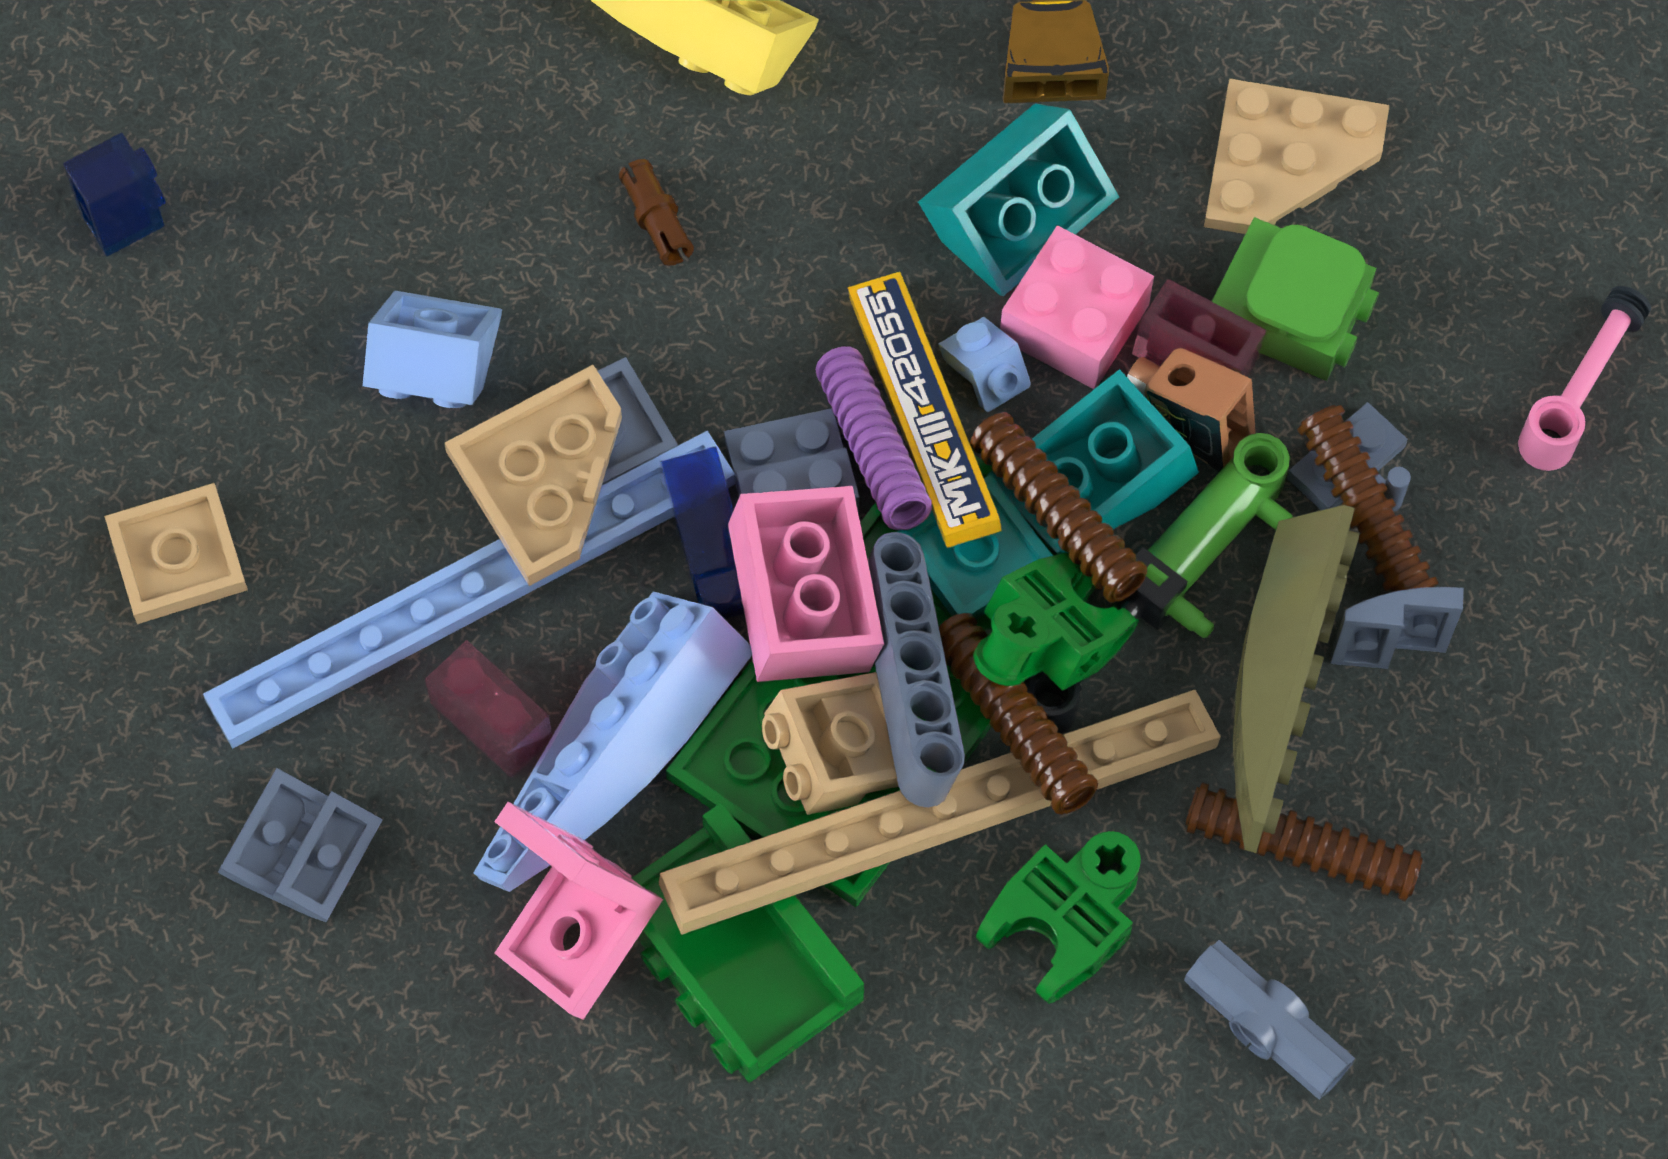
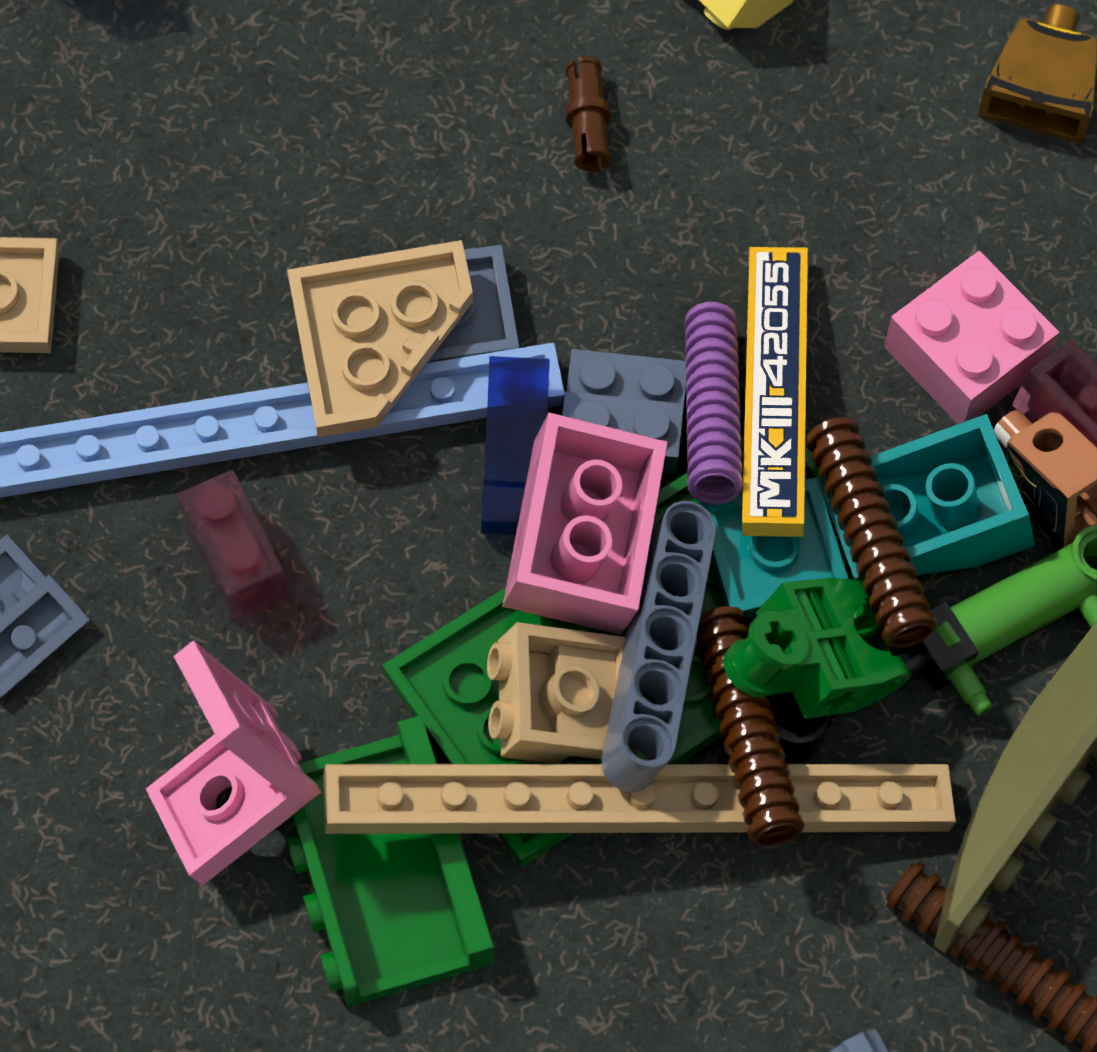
camera: 20 degrees right, 0 degrees up
(430, 348) = (315, 175): light blue slope -> none
(623, 725) = (360, 604): light blue wedge -> none
(988, 361) = (861, 365): light blue bracket -> none
(1016, 192) = (954, 203): teal slope -> none
(1070, 907) = (736, 942): green piece -> none

